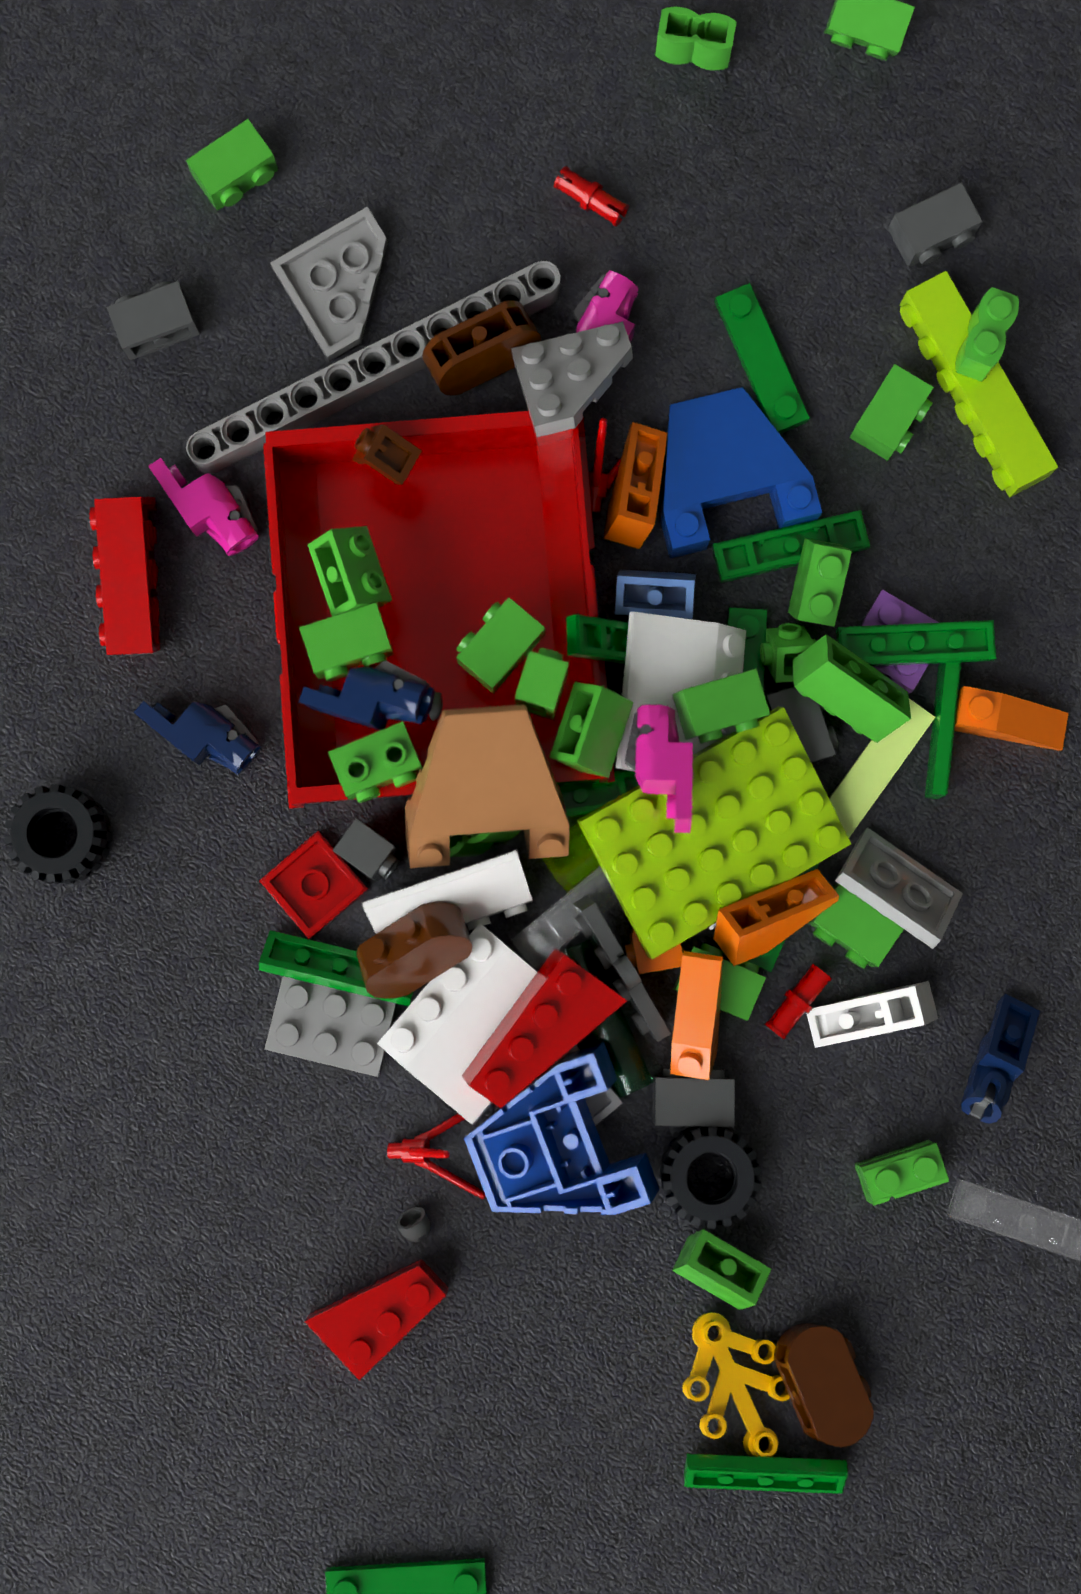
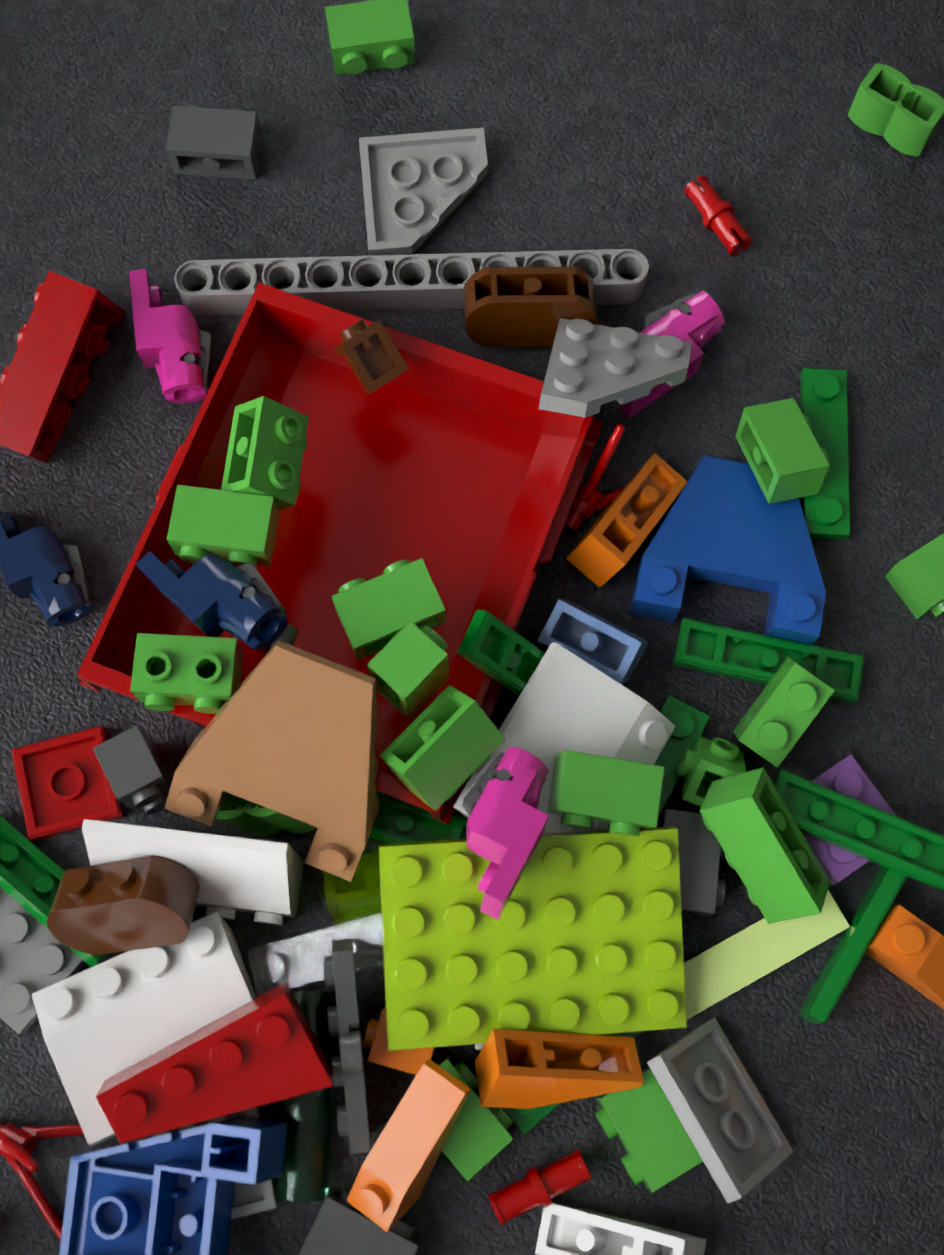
camera: 25 degrees right, 10 degrees down
(730, 375) = (782, 450): none -> bright green brick

